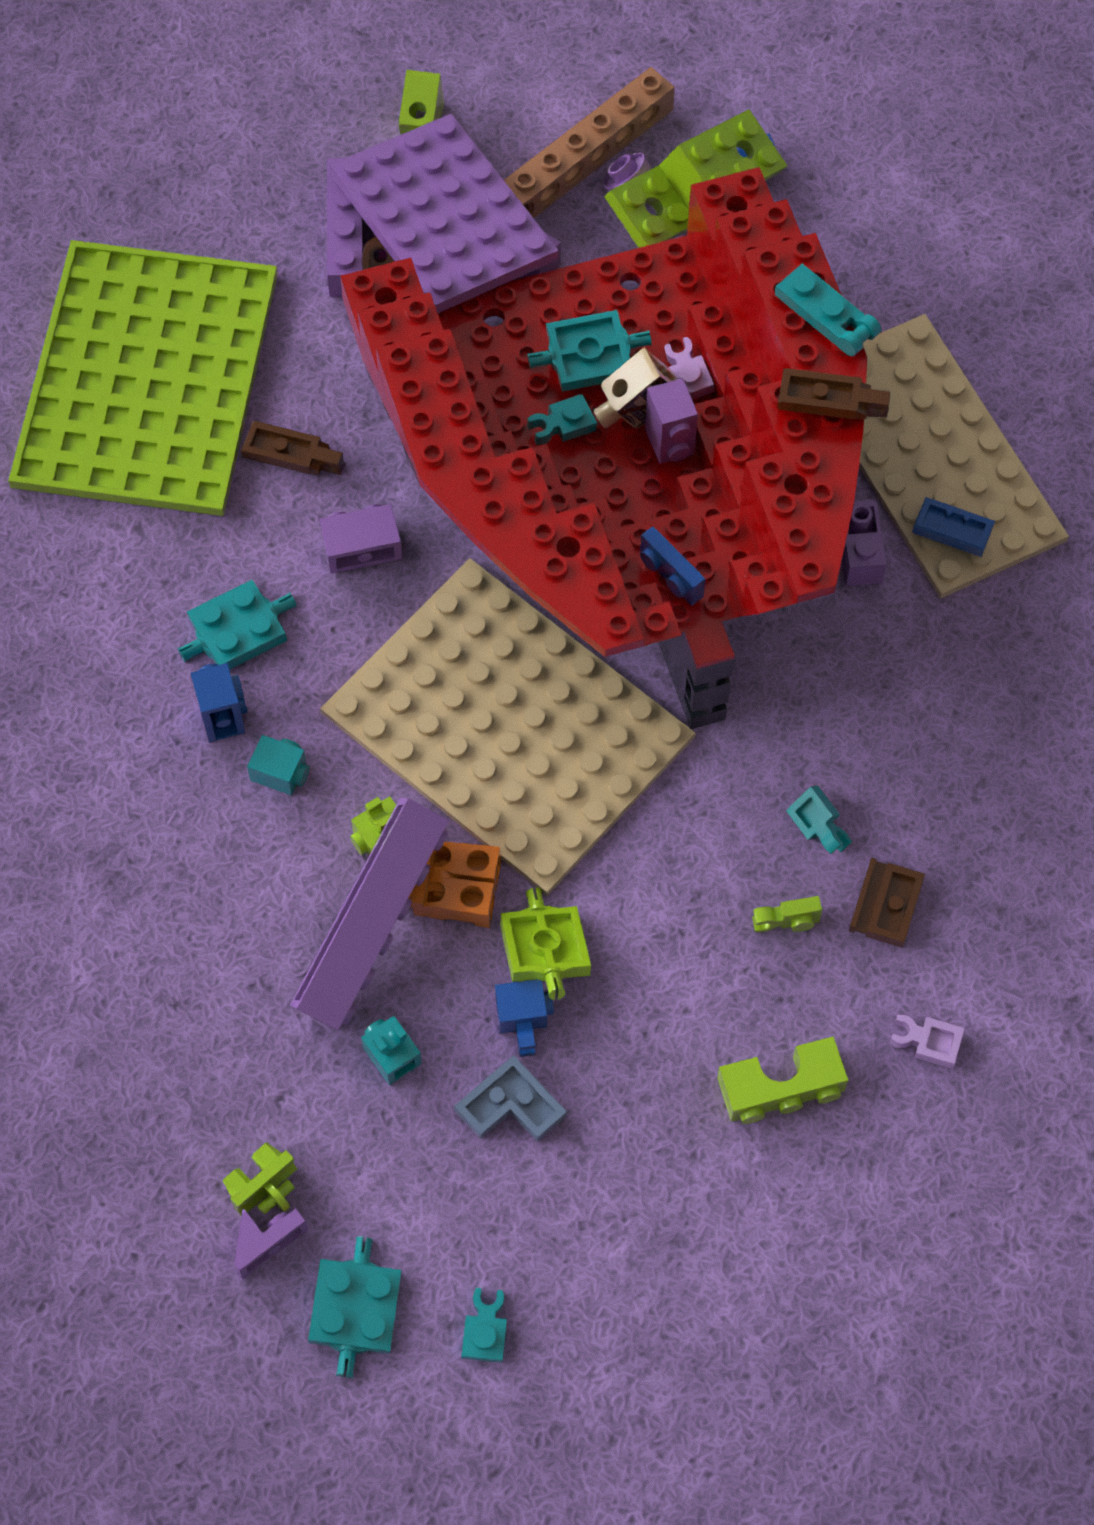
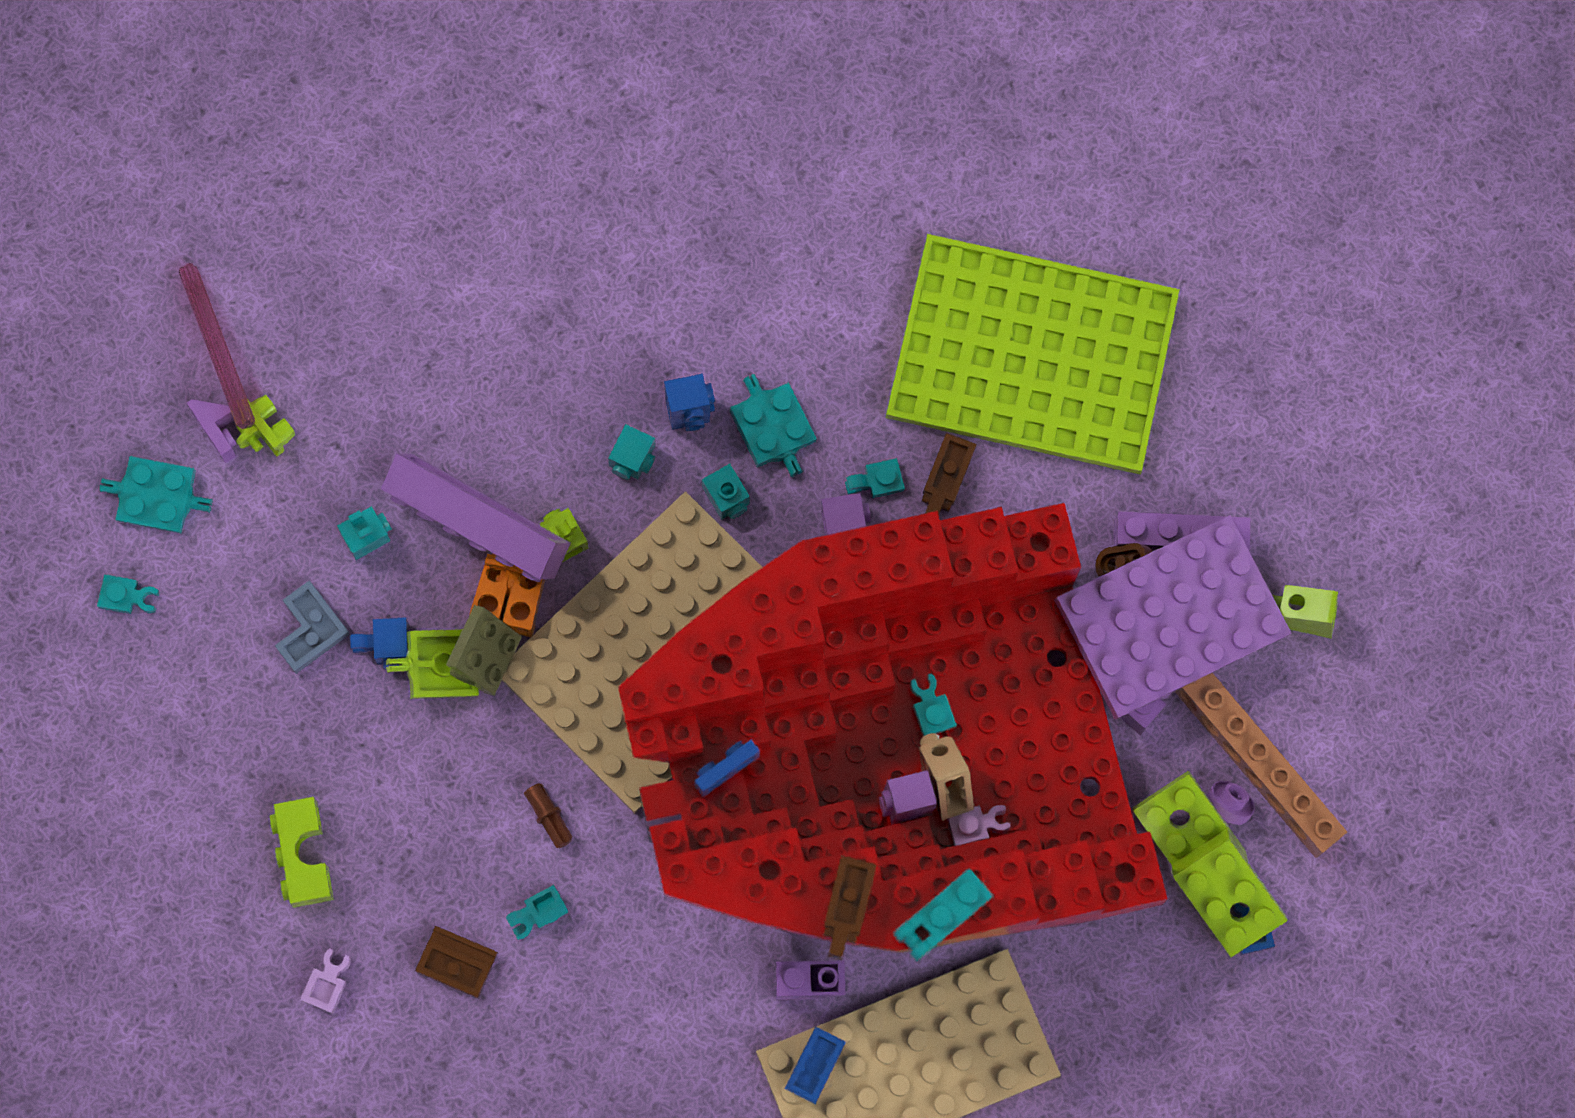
camera: 90 degrees right, 10 degrees up
(161, 1245) = (216, 346): none -> clear pink axle
(296, 516) = (880, 478): none -> teal plate
(320, 663) = (726, 492): none -> teal brick
(543, 895) = (483, 651): none -> olive plate
(587, 349) = (1003, 736): teal plate -> none
(709, 820) = (548, 815): none -> copper axle
(797, 914) = (449, 883): lime plate -> none

